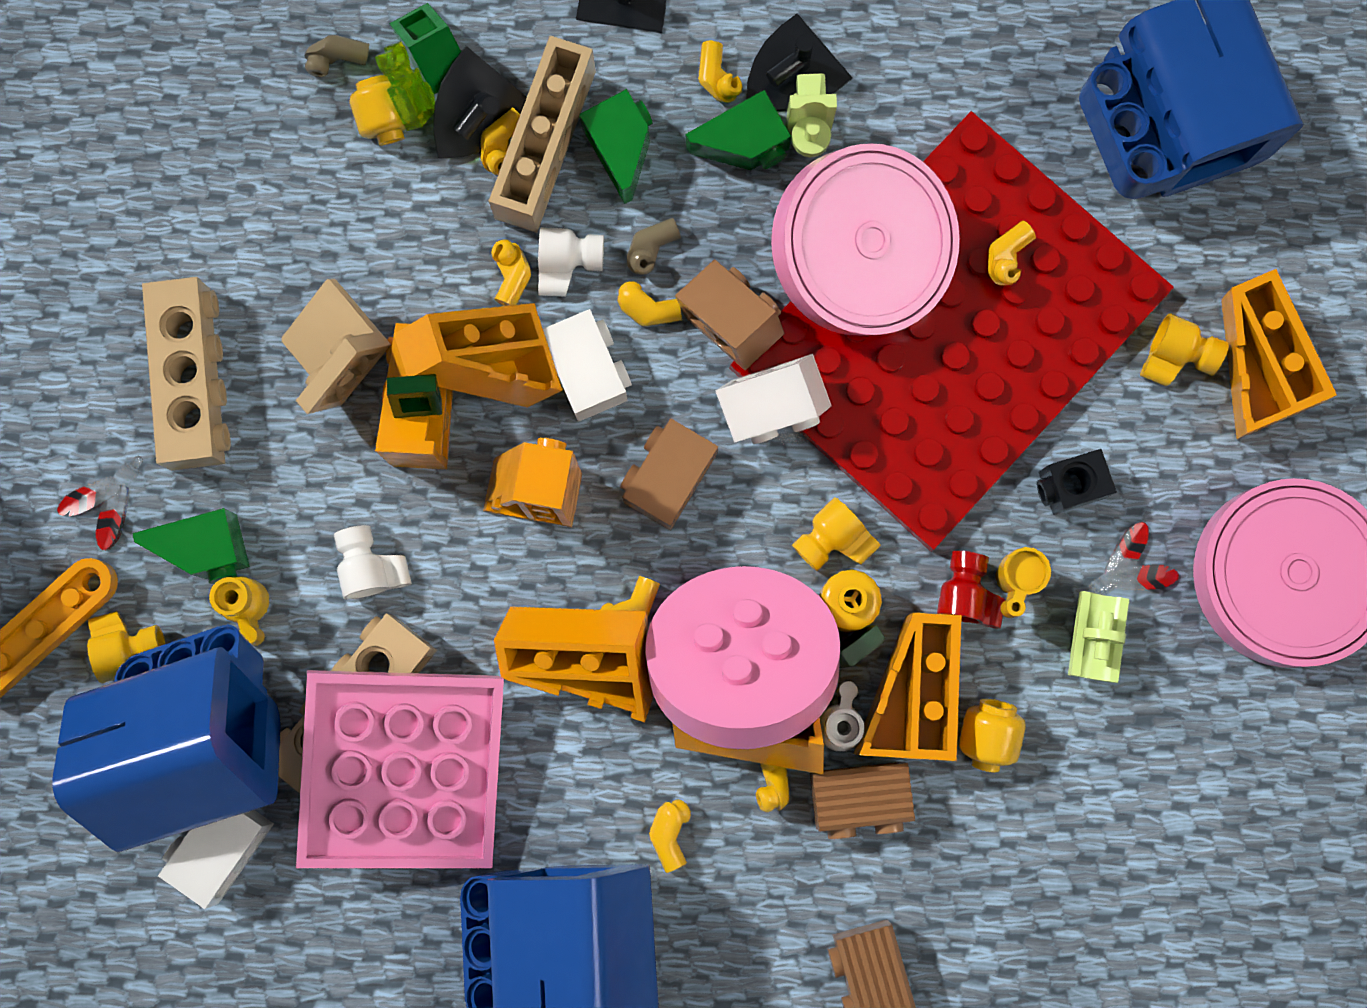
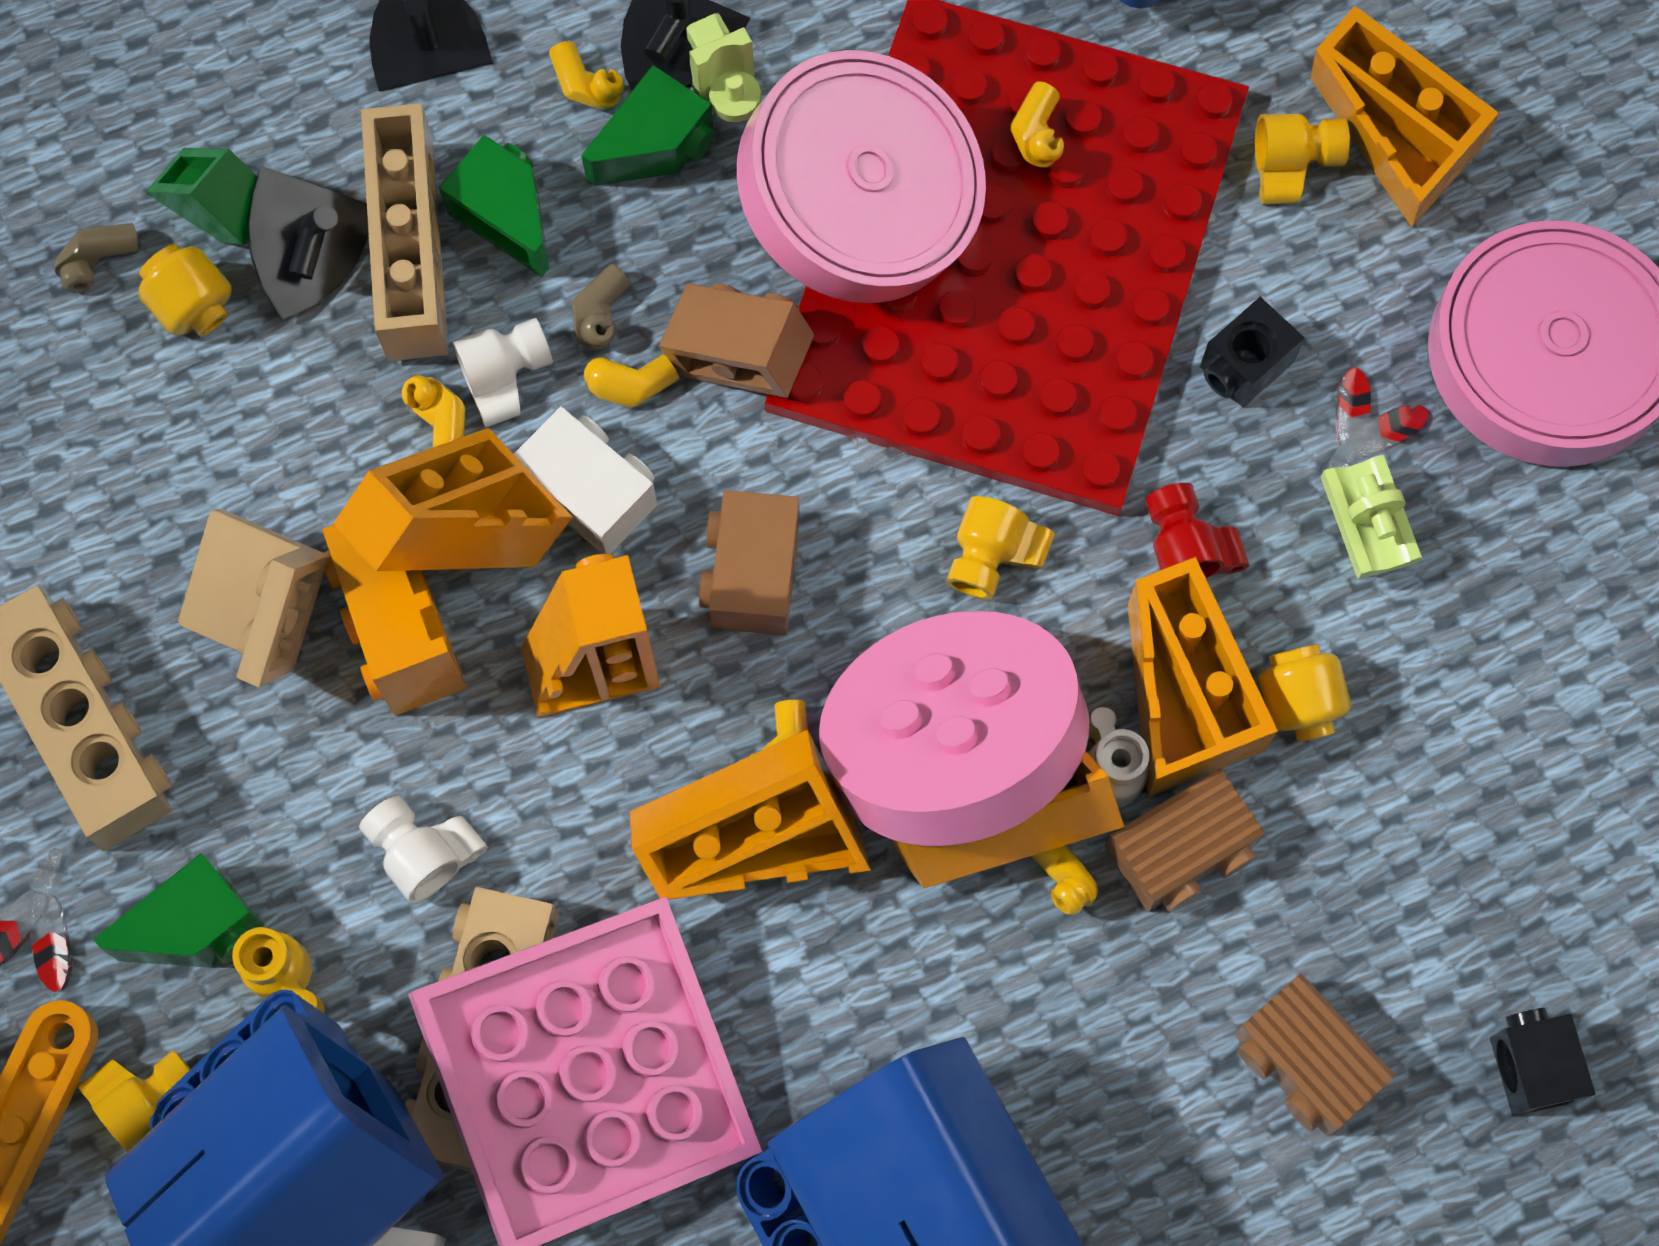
camera: 25 degrees left, 10 degrees down
(408, 90) = (216, 253): clear neon green plate -> none
(414, 396) = (393, 589): dark green tile -> none
(496, 140) = (346, 268): yellow arm -> none
(665, 832) = (961, 1002): yellow arm -> none
(774, 399) = (840, 412): white brick -> none
(860, 645) = (1093, 653): dark green tile -> none
(864, 587) = (1056, 602): yellow head -> none
(1020, 575) = (1241, 485): yellow piece -> none

